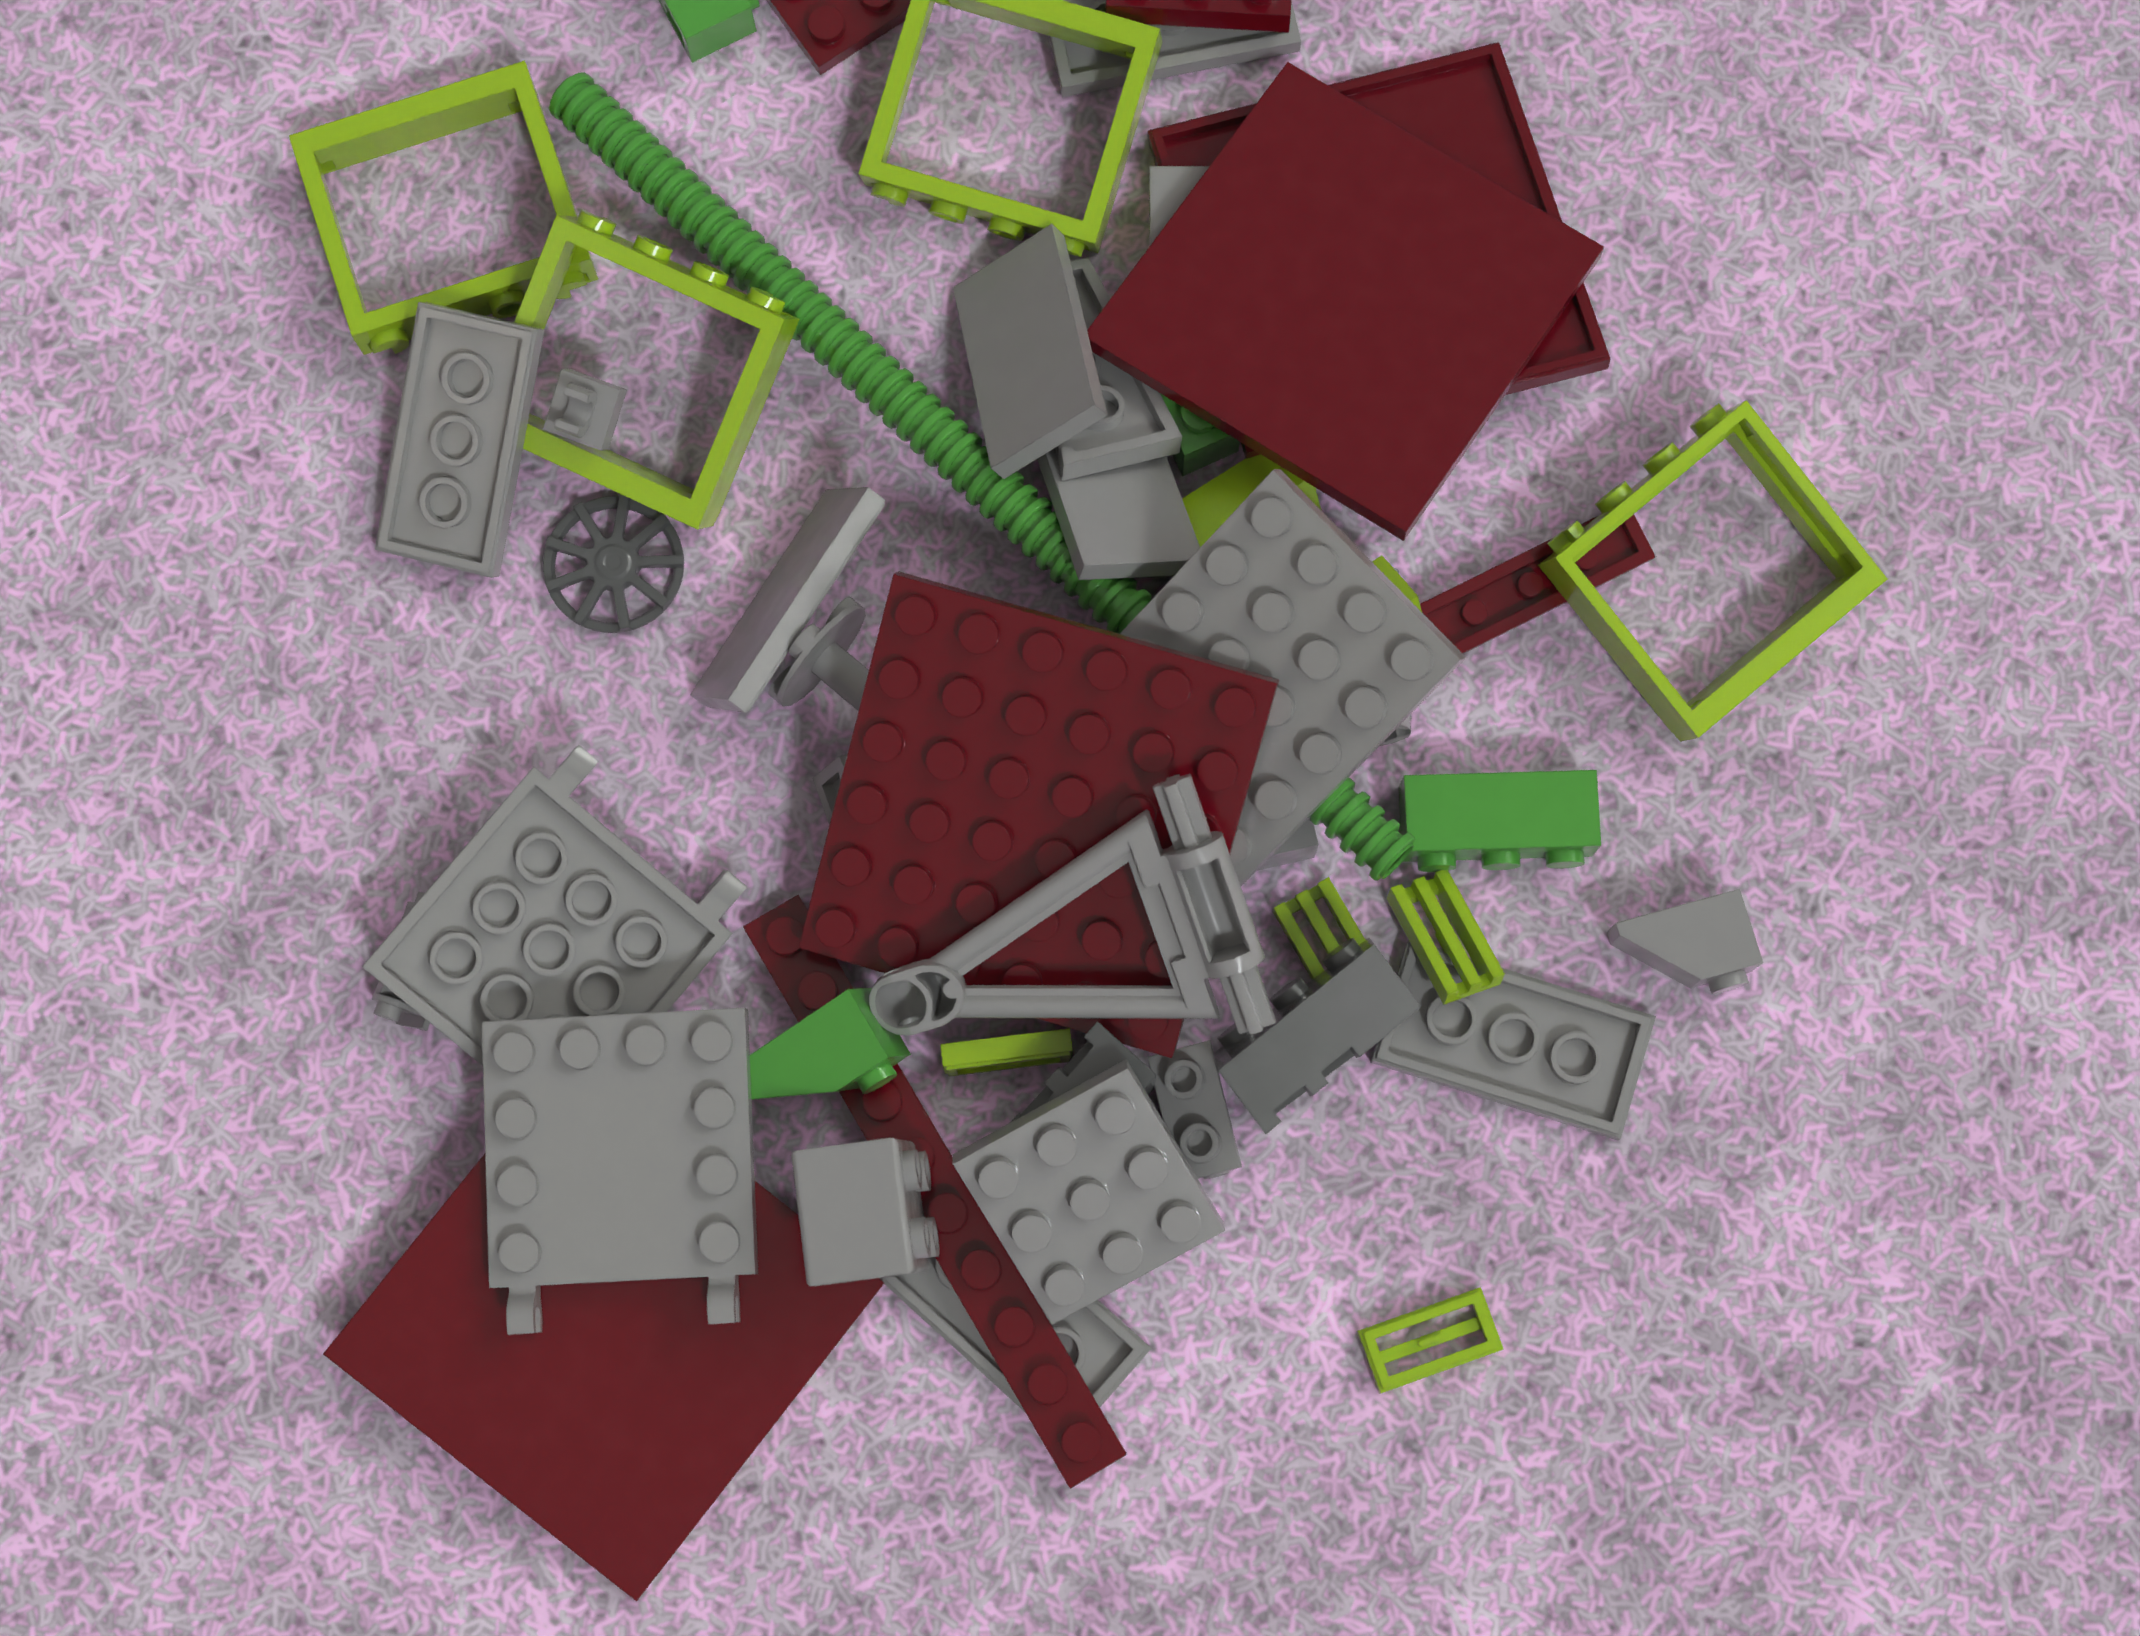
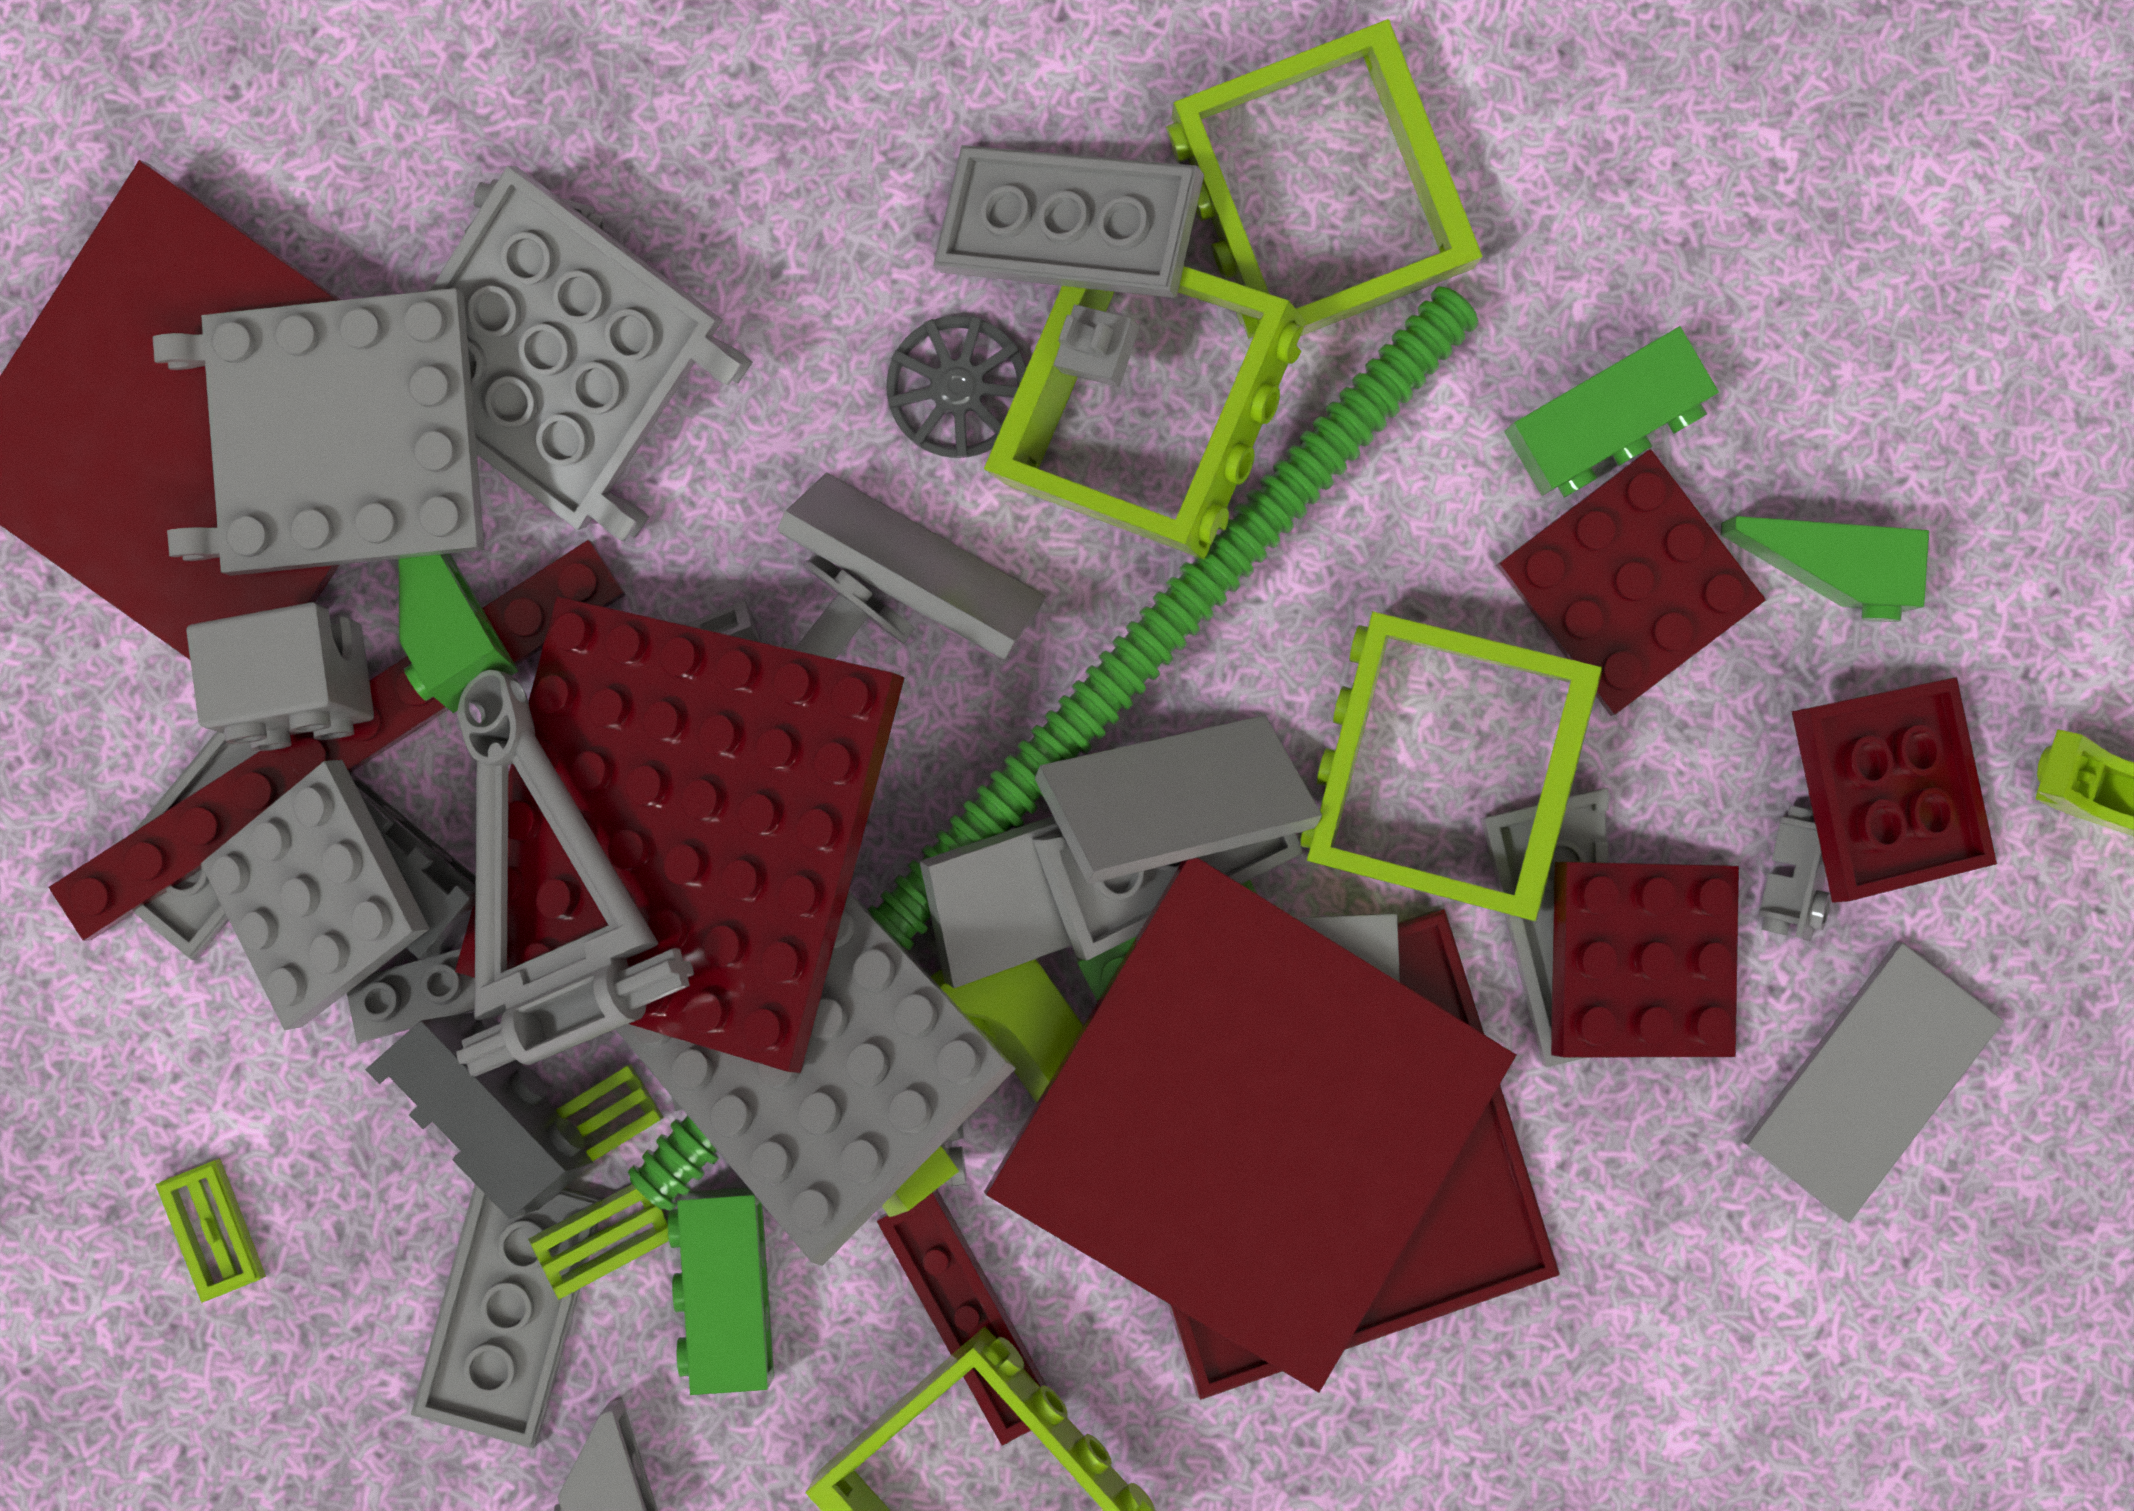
camera: 85 degrees right, 10 degrees up
(1007, 1052) = (460, 777): lime tile -> none

